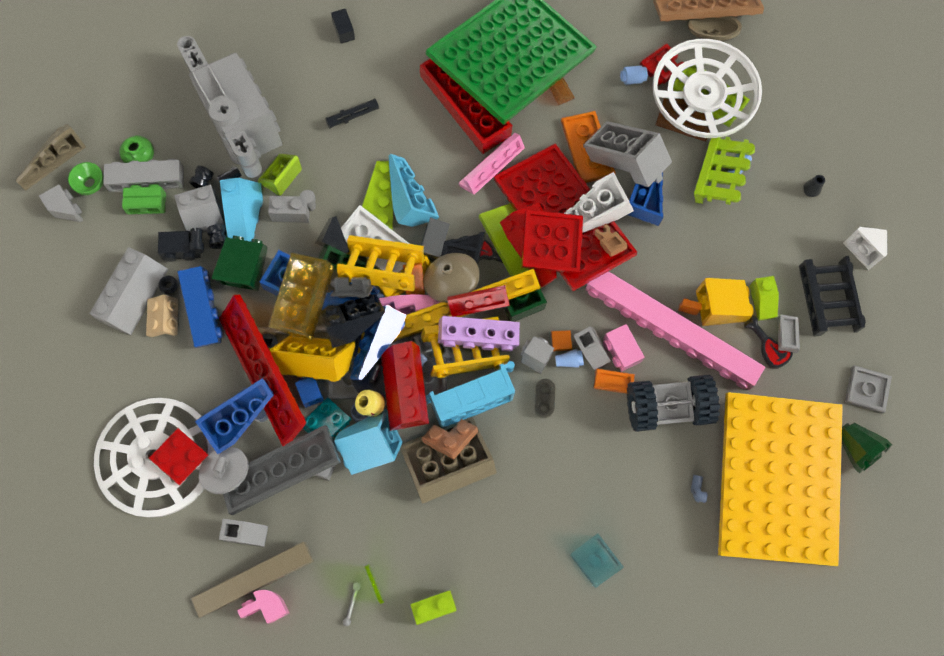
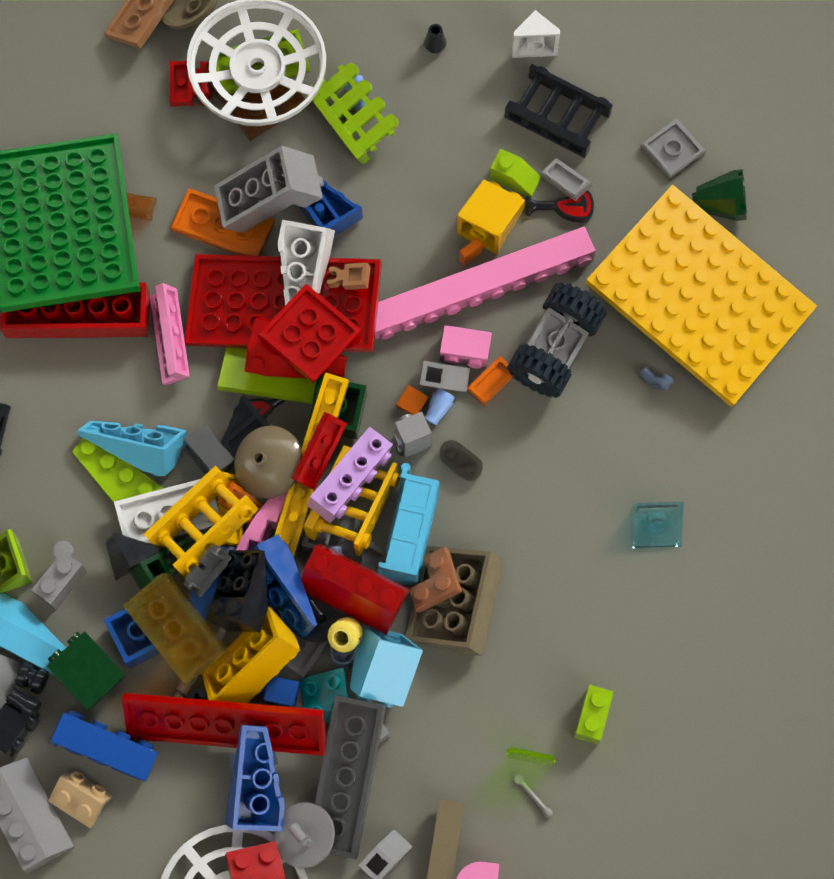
camera: 50 degrees left, 0 degrees up
(164, 281) = (42, 762): black plate -> none
(634, 75) = (179, 120): light blue brick -> none

